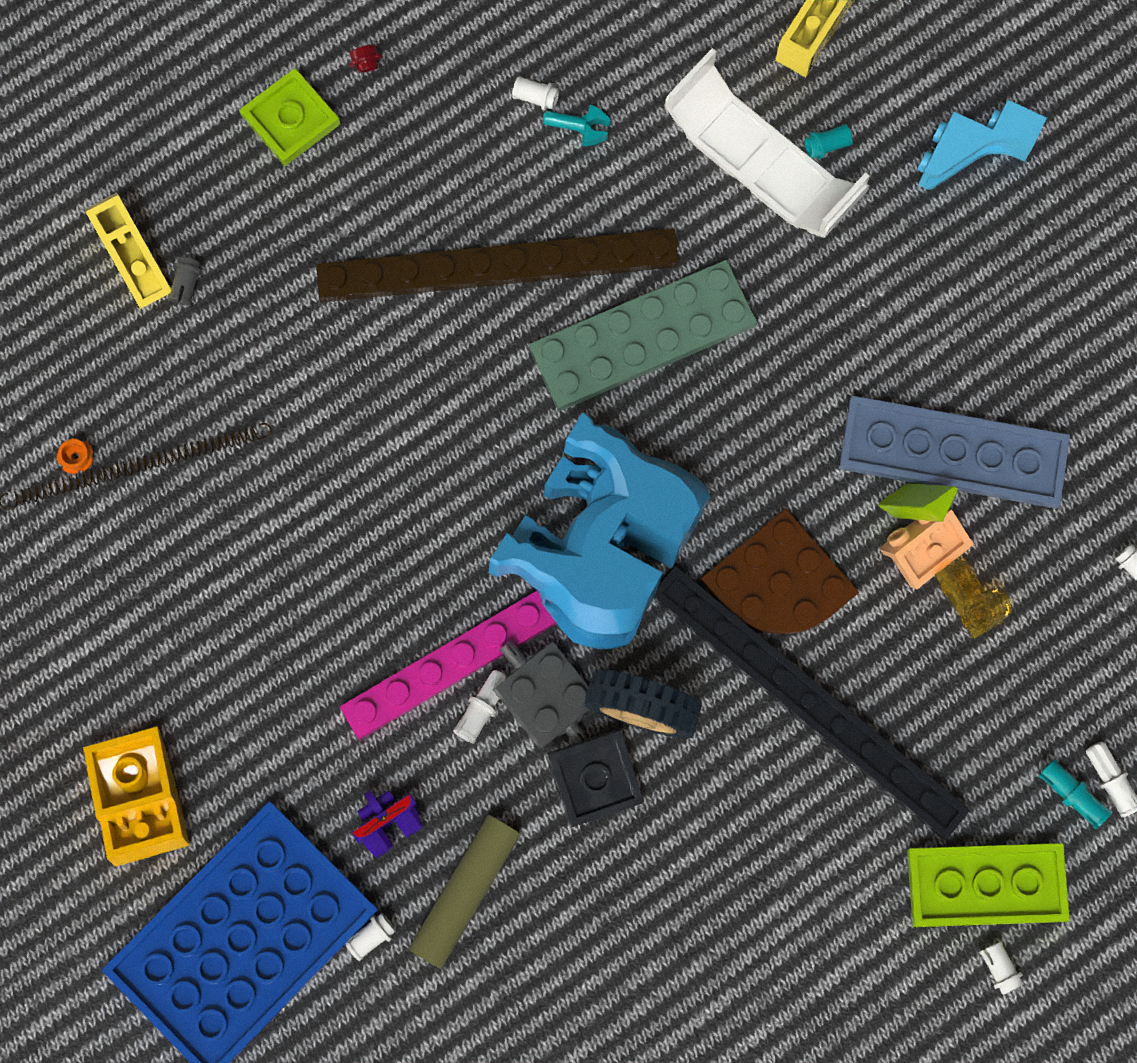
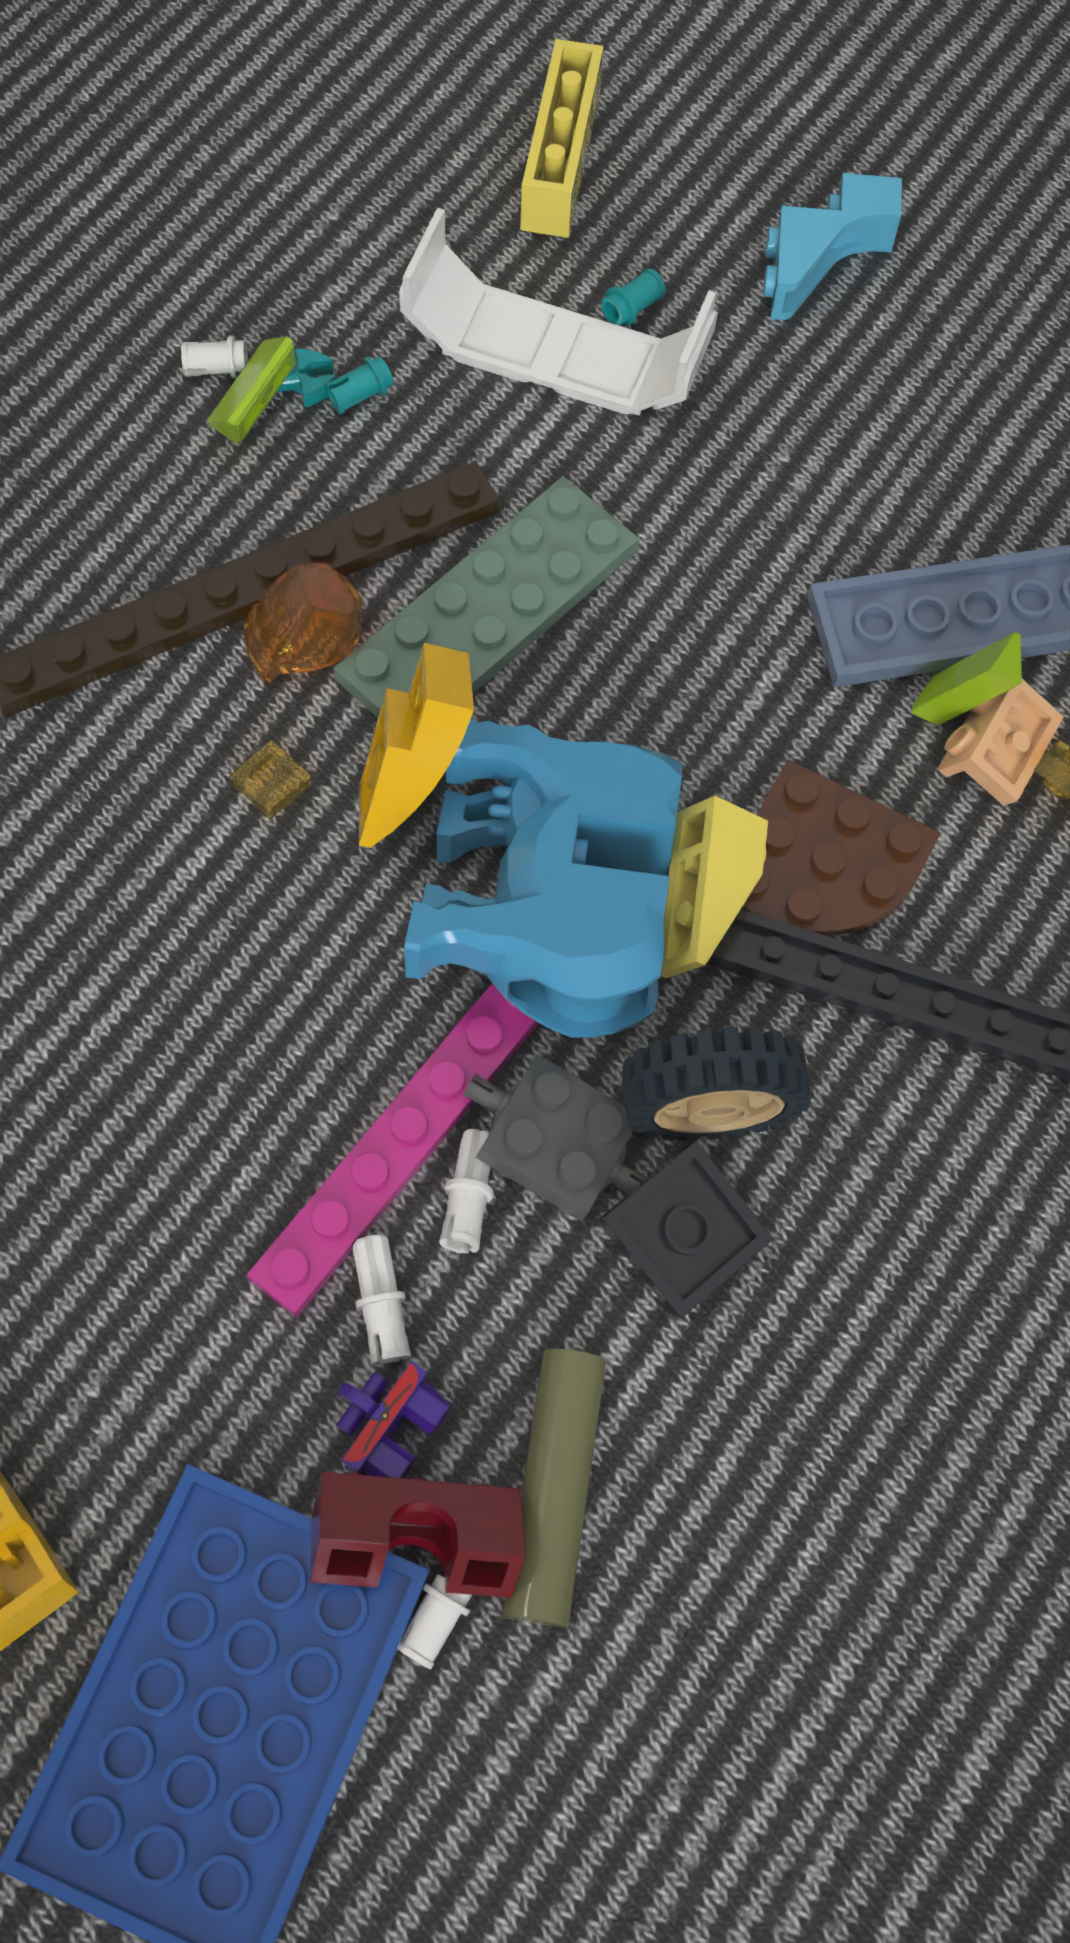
camera: 25 degrees left, 10 degrees down
(406, 895) = (466, 1526): none -> dark red arch
(408, 750) = (380, 1300): none -> white axle
(464, 403) = (270, 779): none -> clear yellow tile
(521, 308) = (303, 622): none -> clear orange helmet
(550, 126) = (254, 388): none -> lime slope
(551, 423) = (414, 741): none -> yellow slope
(621, 145) = (359, 384): none -> teal pin
(697, 573) = (711, 873): none -> light yellow slope

